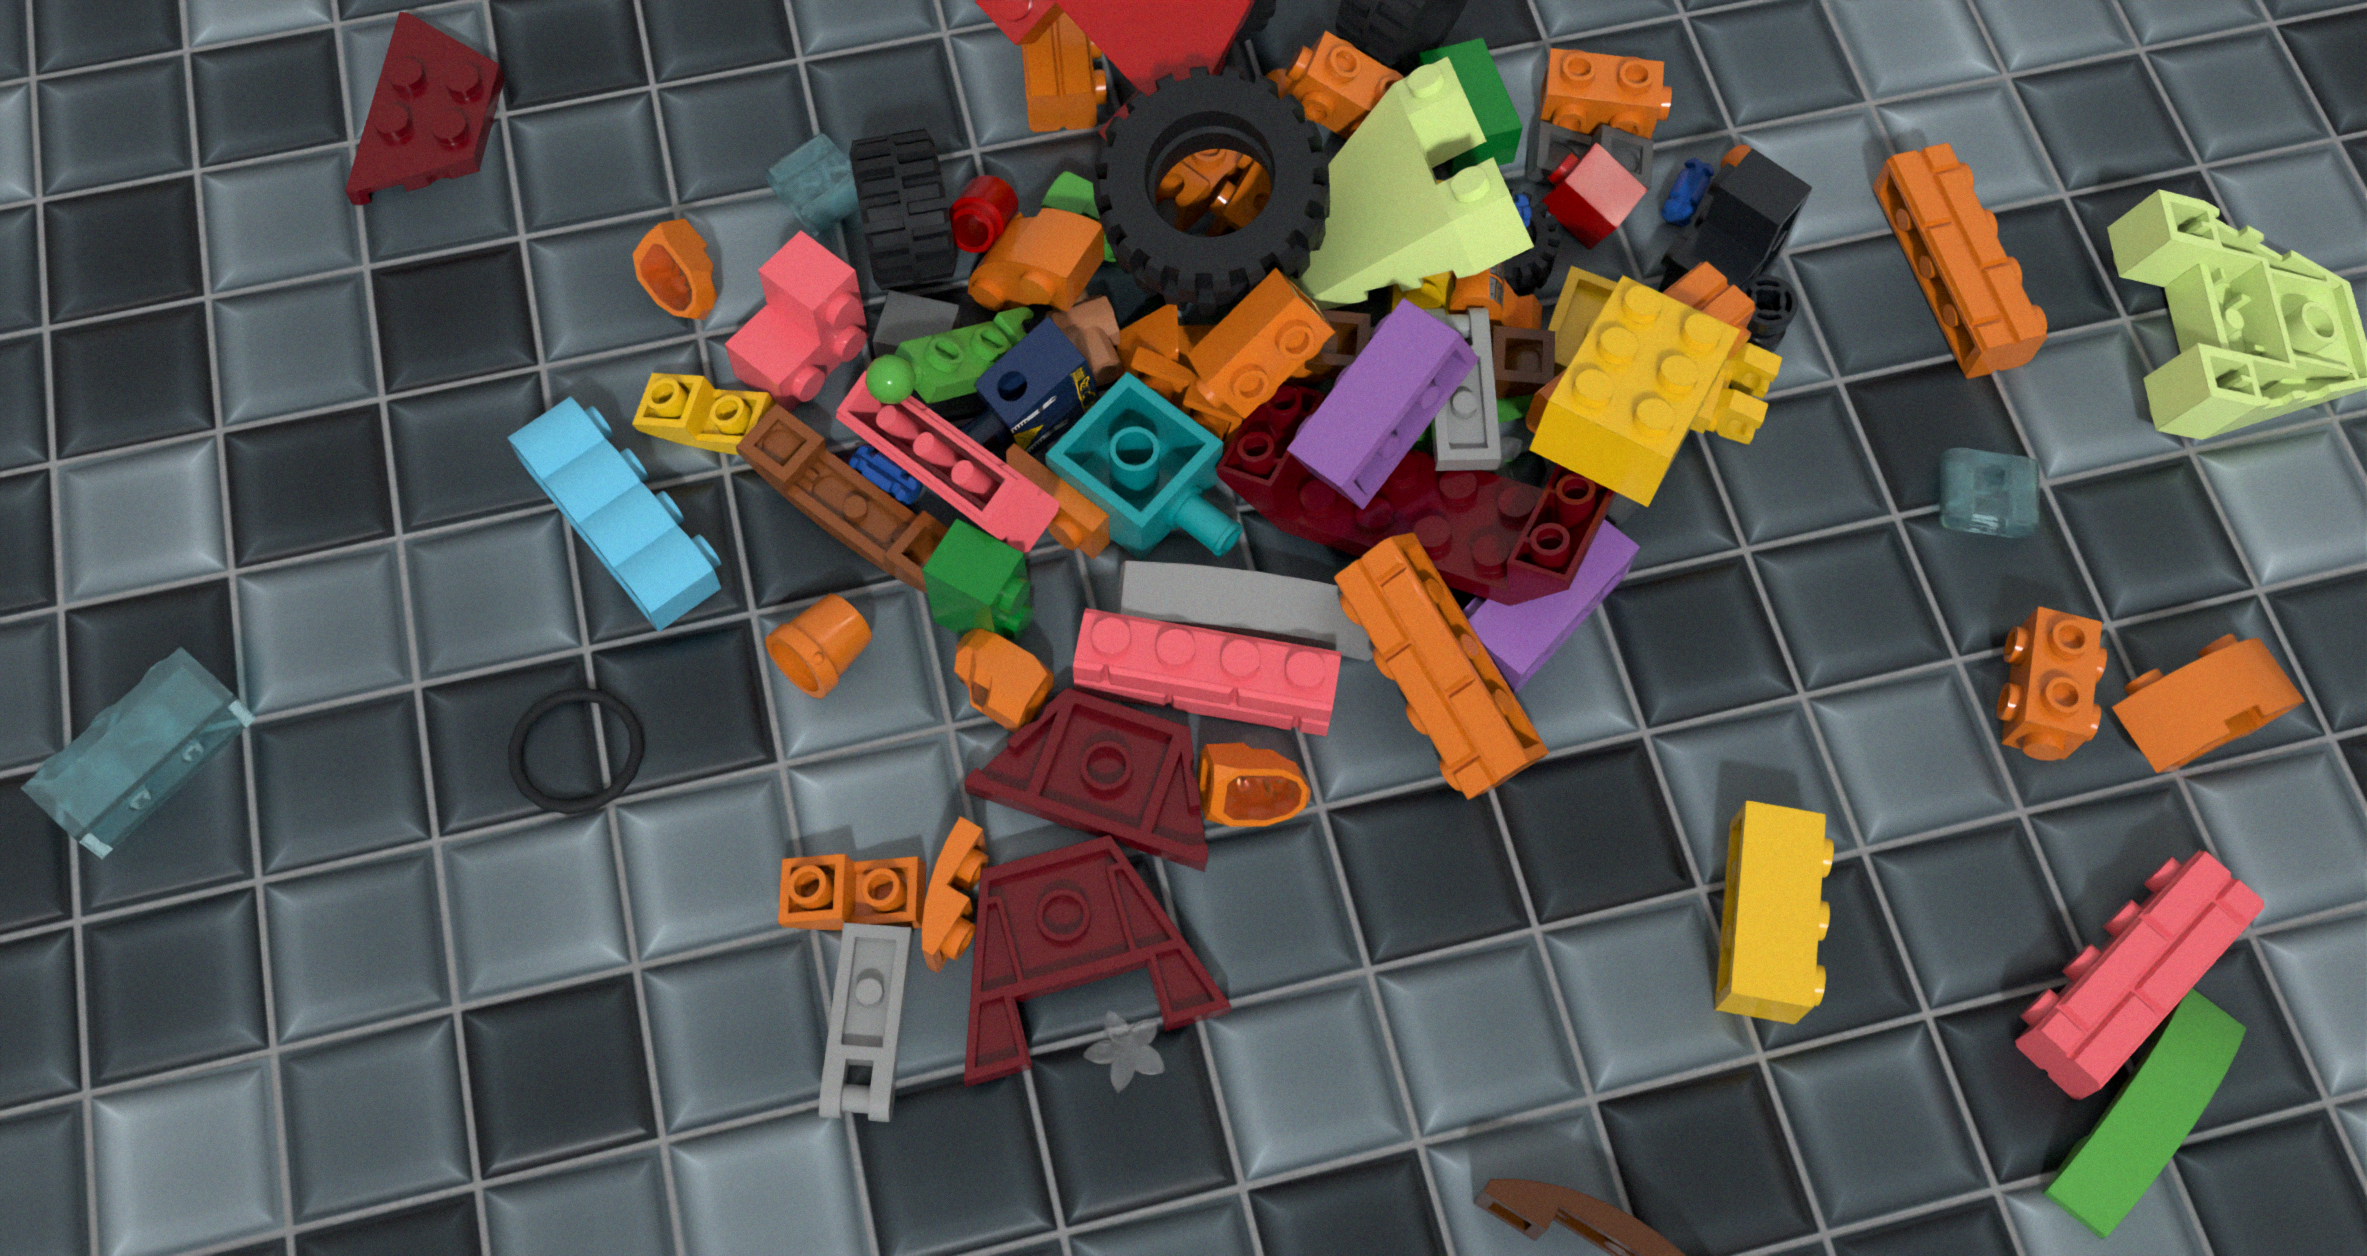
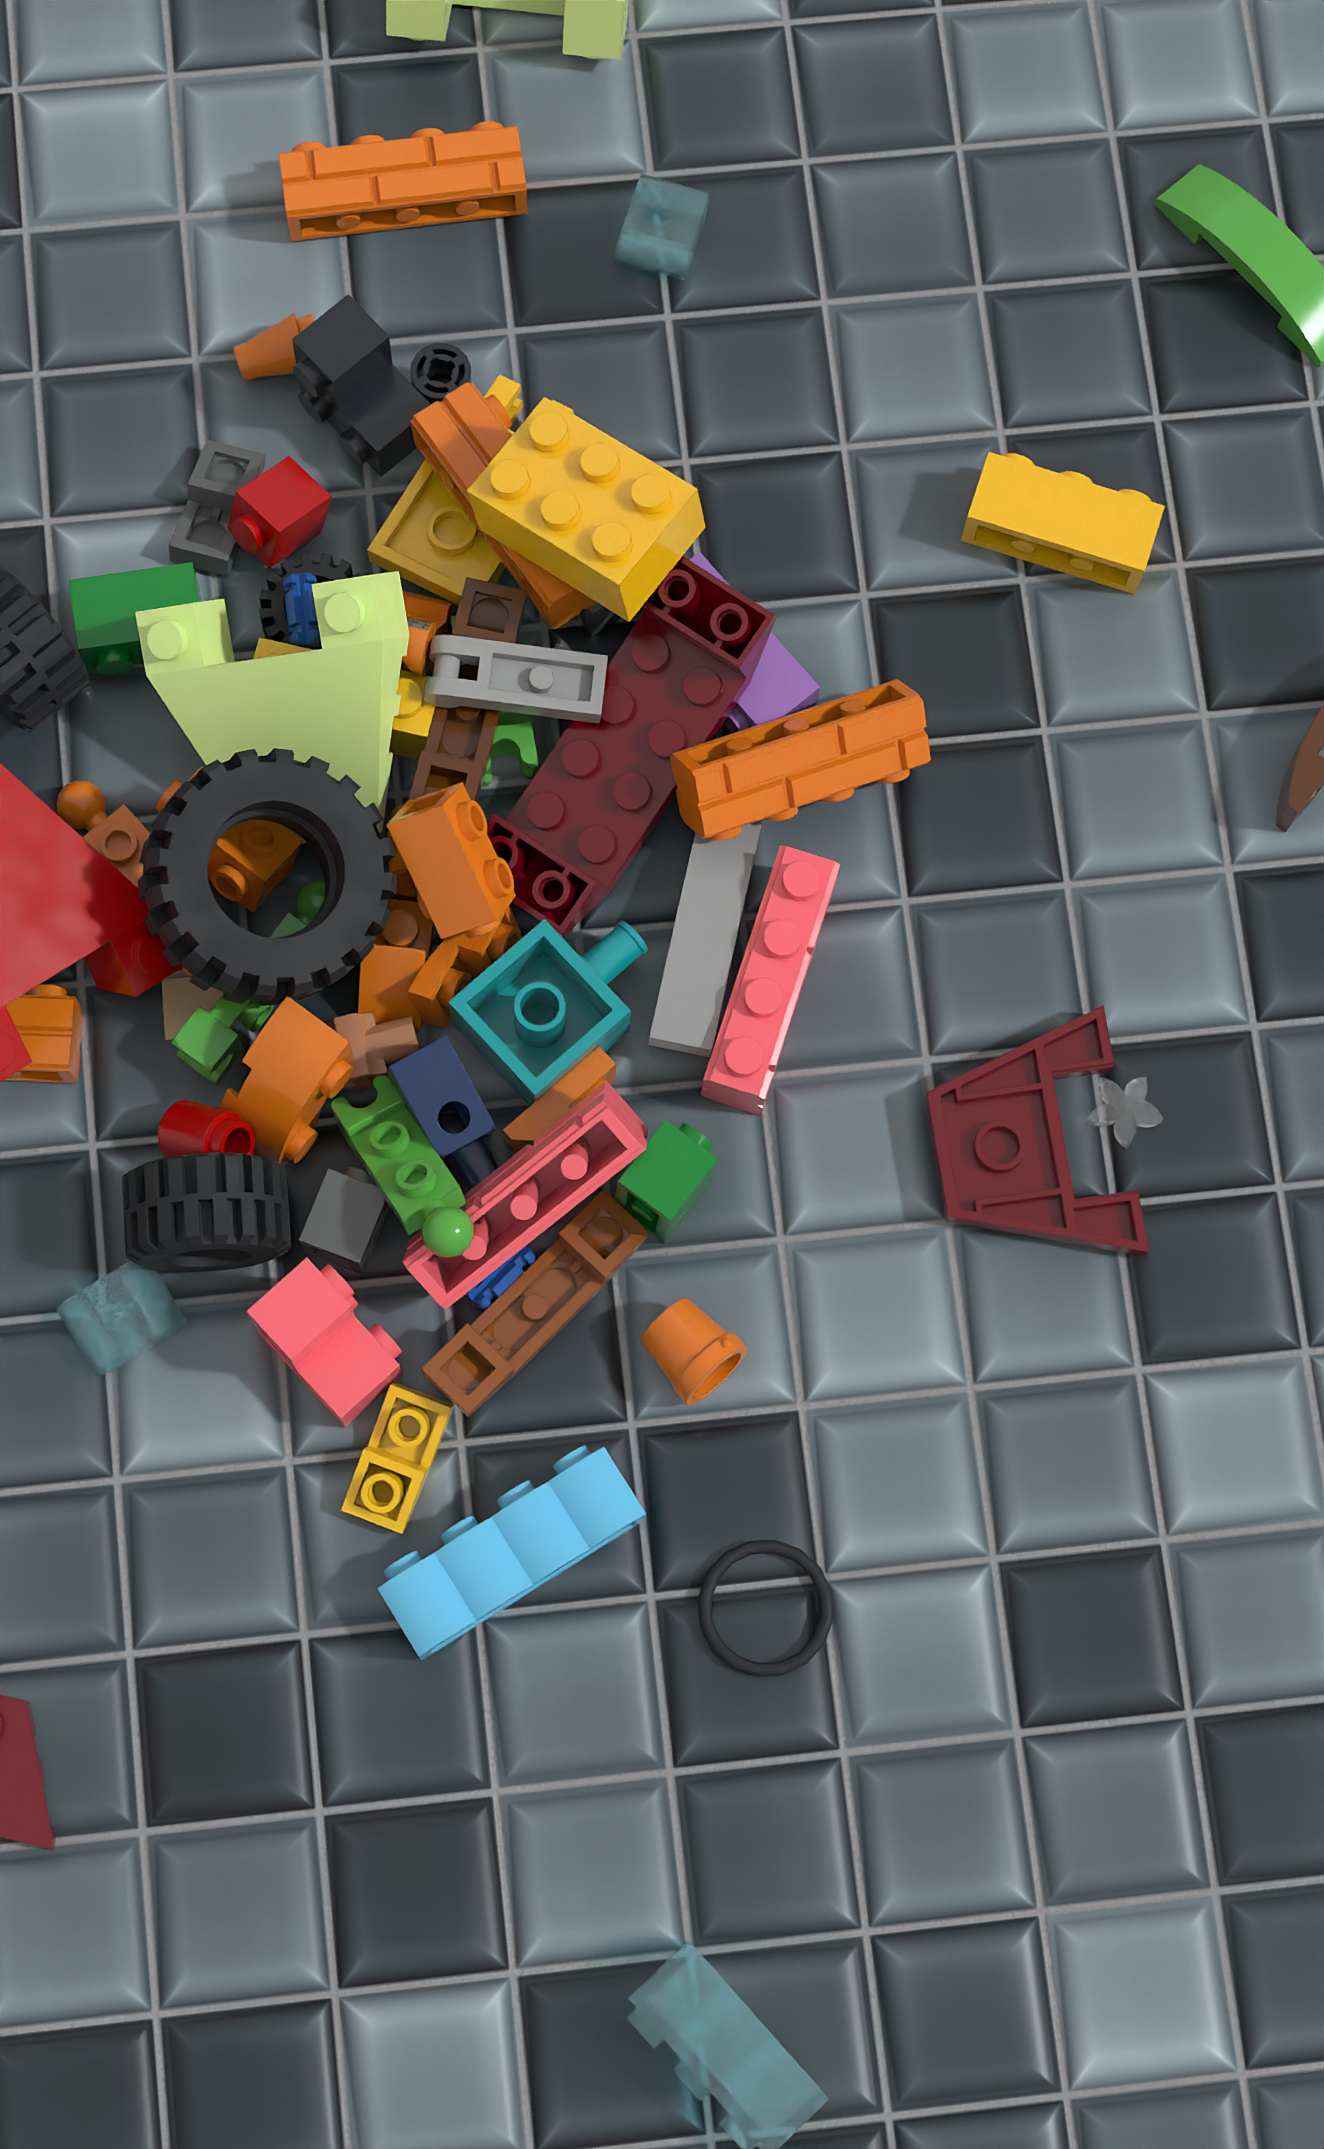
camera: 85 degrees left, 10 degrees up
(676, 269) = (224, 1471): orange rock -> none
(835, 890) = (949, 1344): orange slope -> none
(866, 1020) = (1077, 1337): light grey plate -> none
(948, 912) = (991, 1255): orange slope -> none
(1002, 678) = (751, 1177): orange rock -> none
(1103, 775) = (858, 1094): dark red wing -> none
(1249, 785) = (891, 960): orange rock -> none
(1338, 83) = (112, 731): orange brick -> none
(1383, 402) = (535, 756): medium lavender brick -> none
(1597, 89) = (146, 477): orange brick -> none
(1687, 192) = (274, 420): blue piece -> none
(2051, 684) = (872, 227): orange brick -> none
(2137, 974) = (1148, 235): coral brick -> none
(2206, 702) = (917, 122): orange brick -> none

